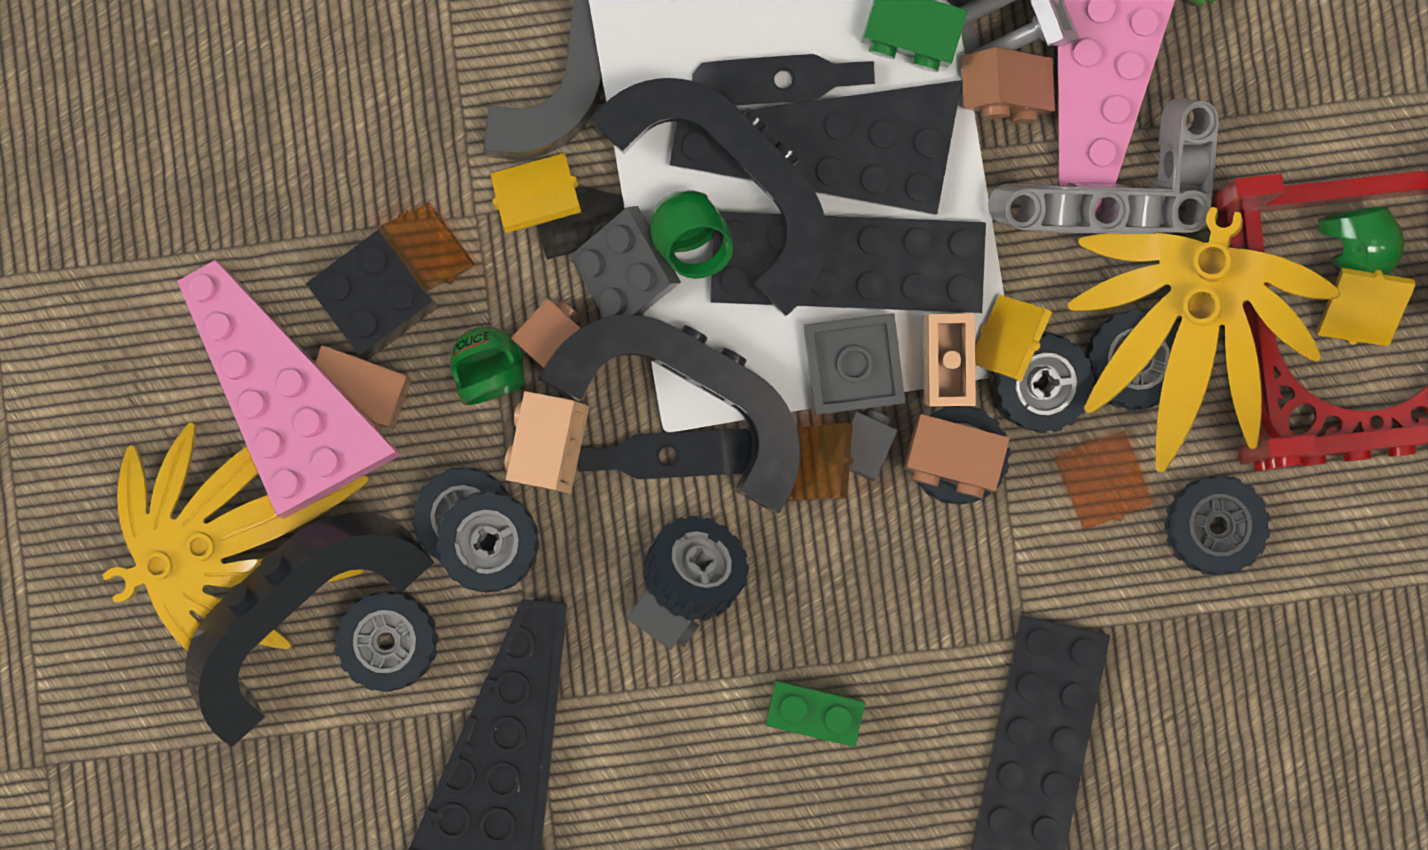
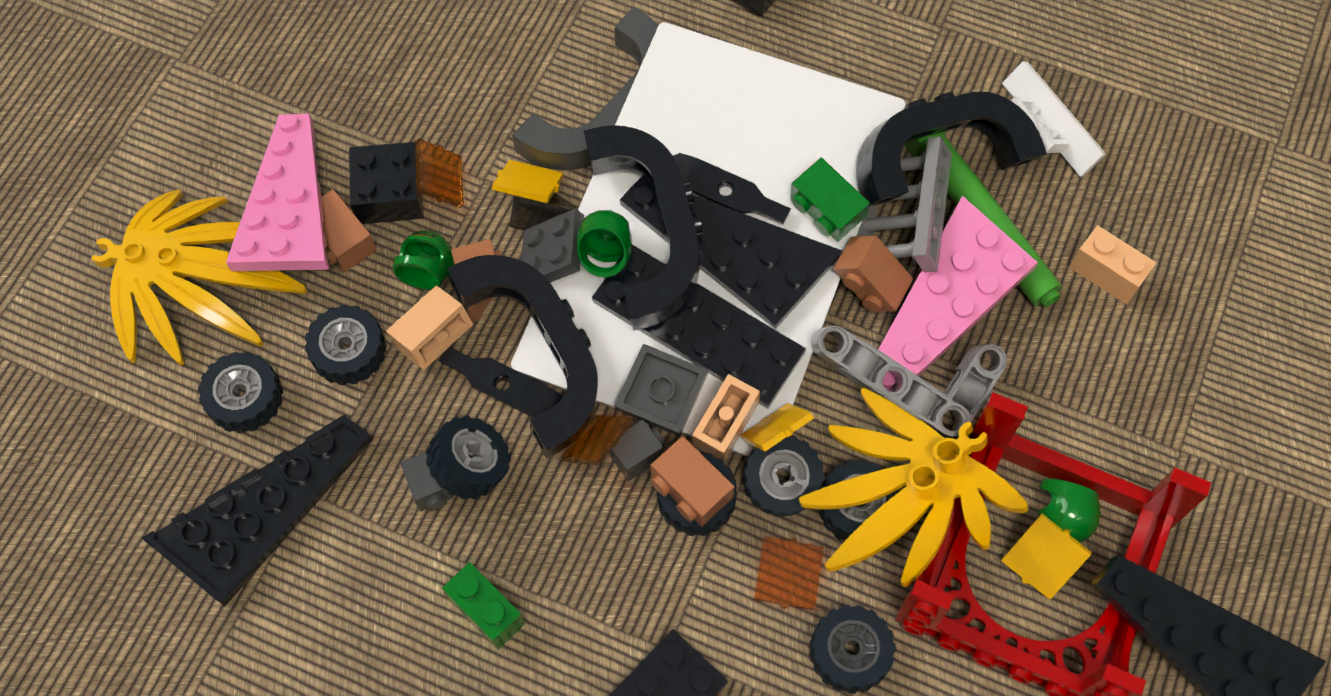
camera: 30 degrees right, 20 degrees down
(275, 592) = (109, 353): black arch -> none
(513, 551) = (358, 373): black wheel -> none

